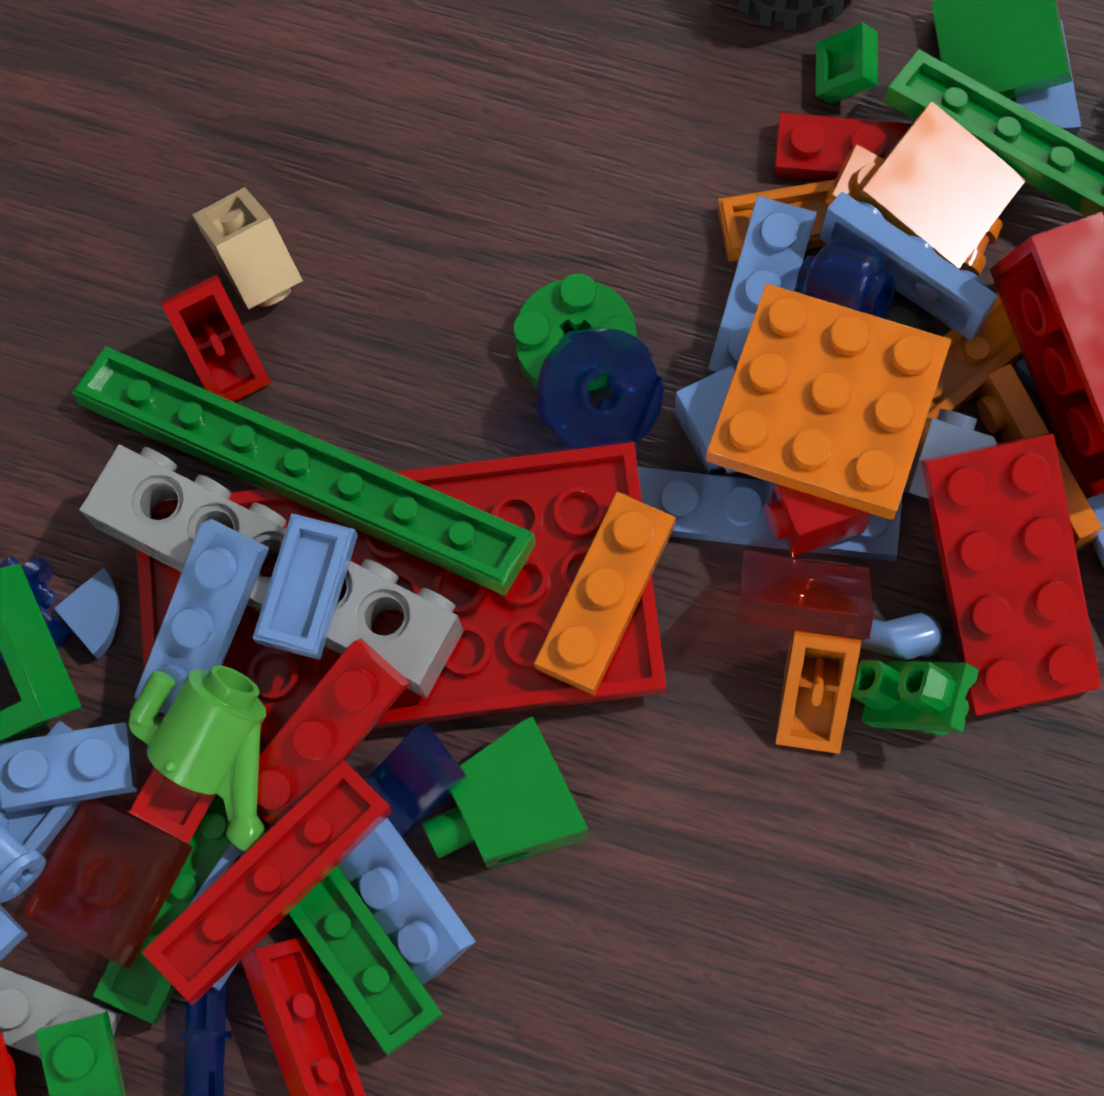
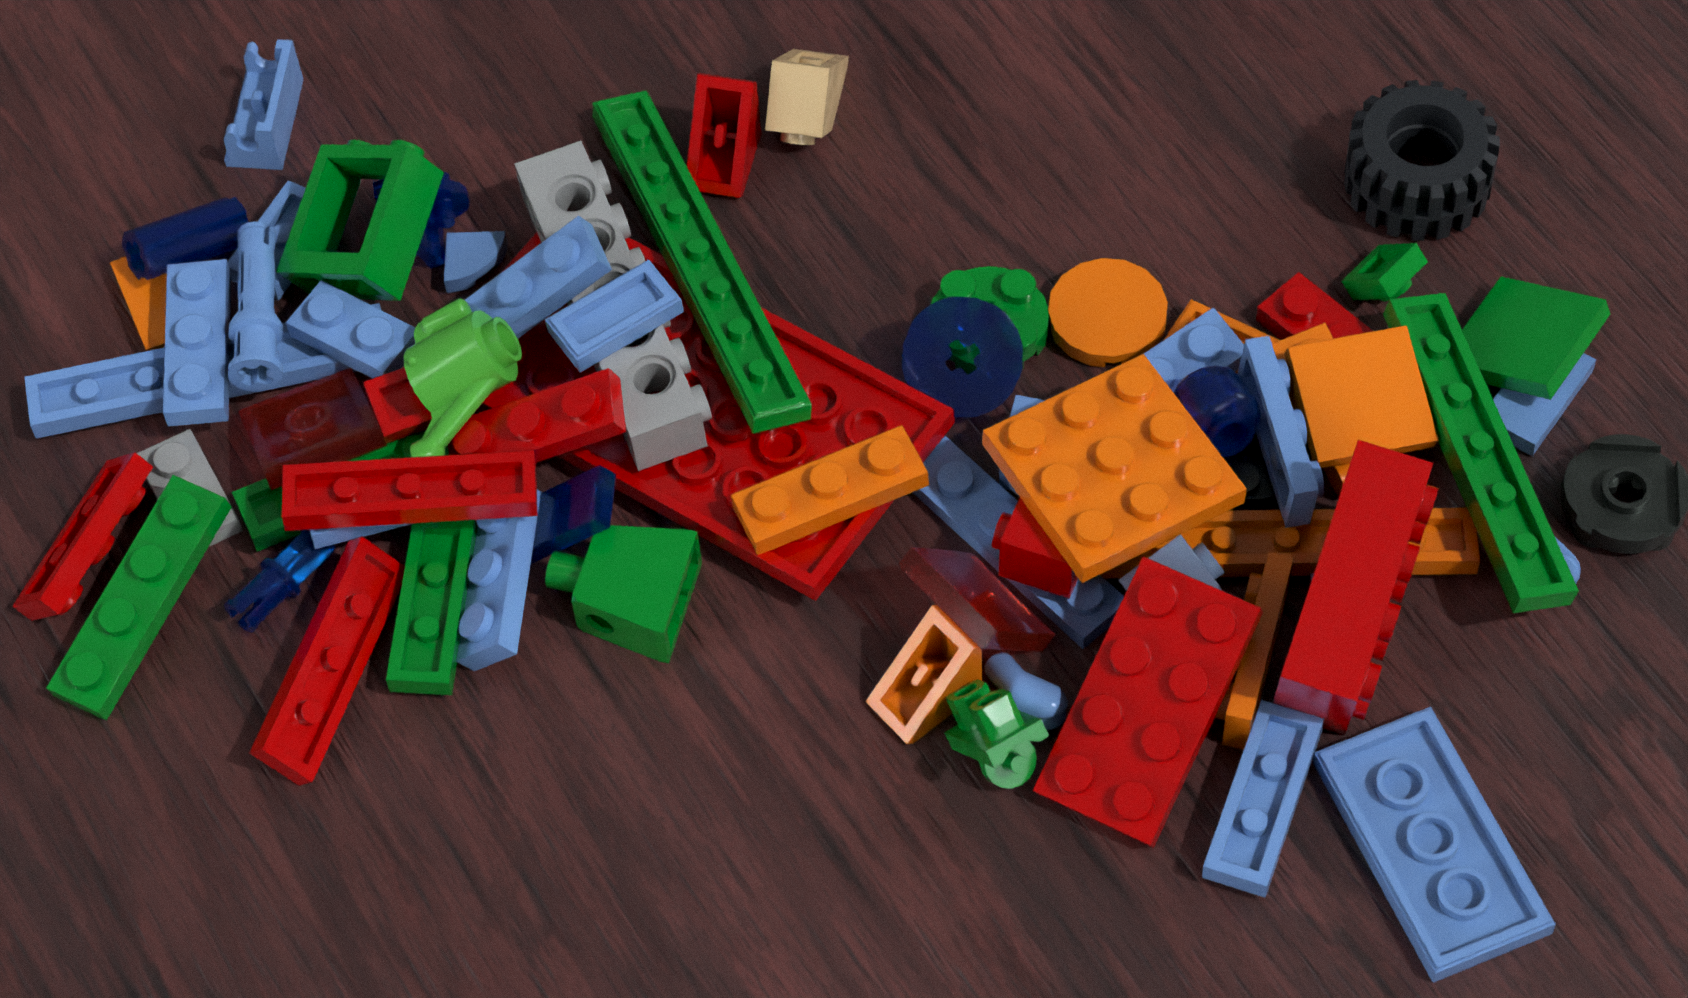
camera: 40 degrees right, 15 degrees down
(661, 259) = (1107, 312): none -> orange tile

